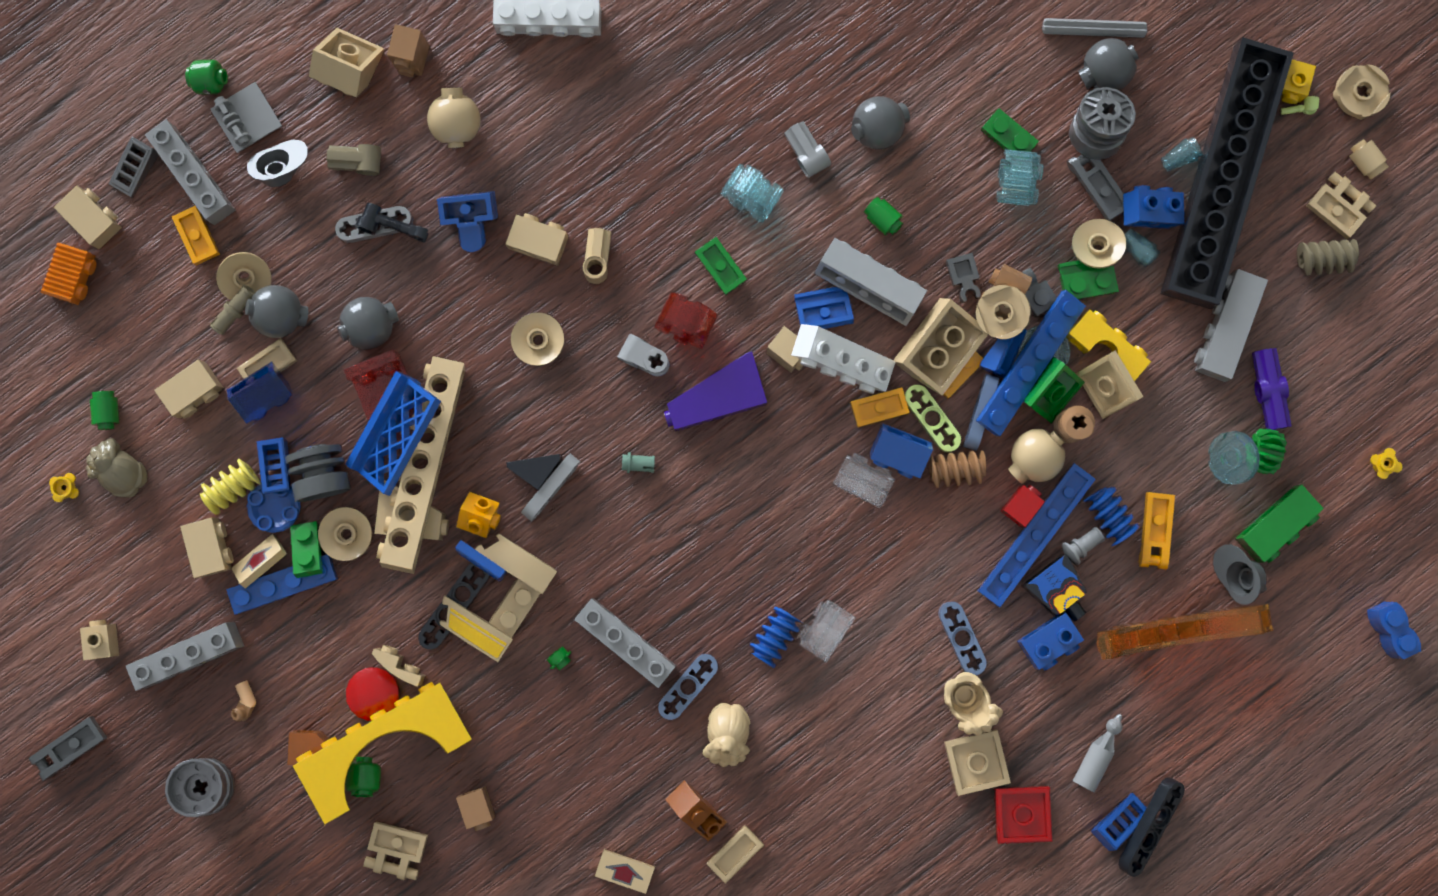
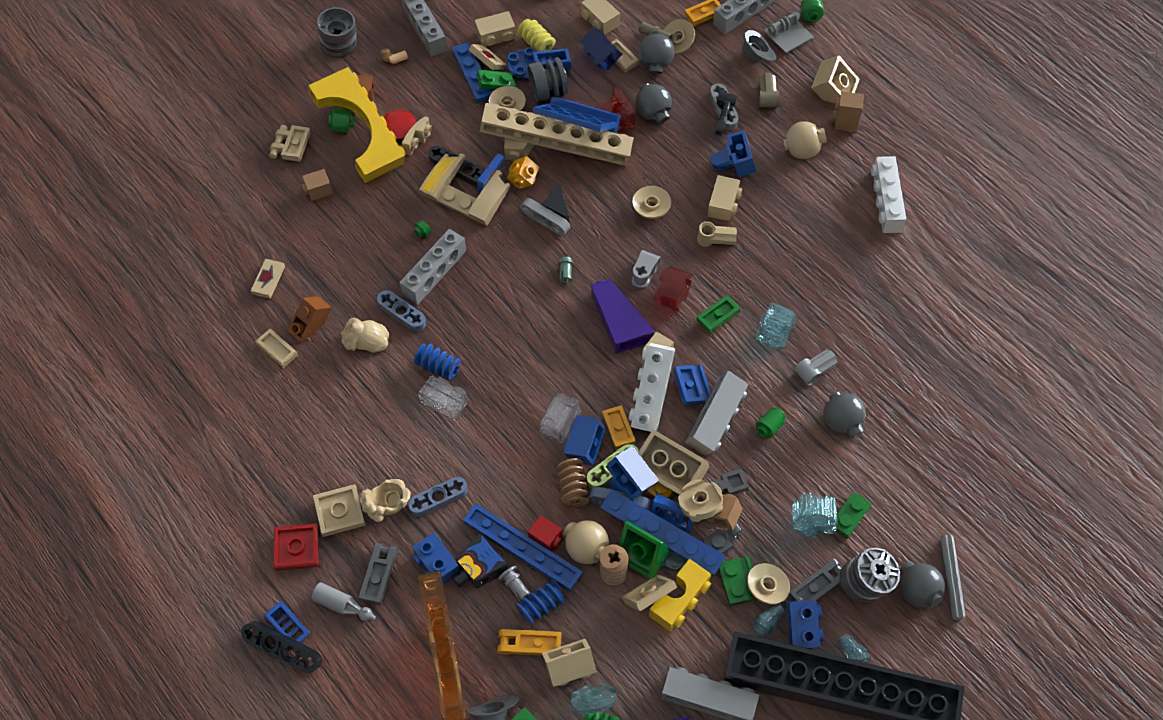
camera: 85 degrees right, 25 degrees down
(963, 393) = (631, 474): none -> brick
(1063, 711) = (378, 574): none -> dark grey plate
(1188, 484) = (569, 662): none -> tan brick

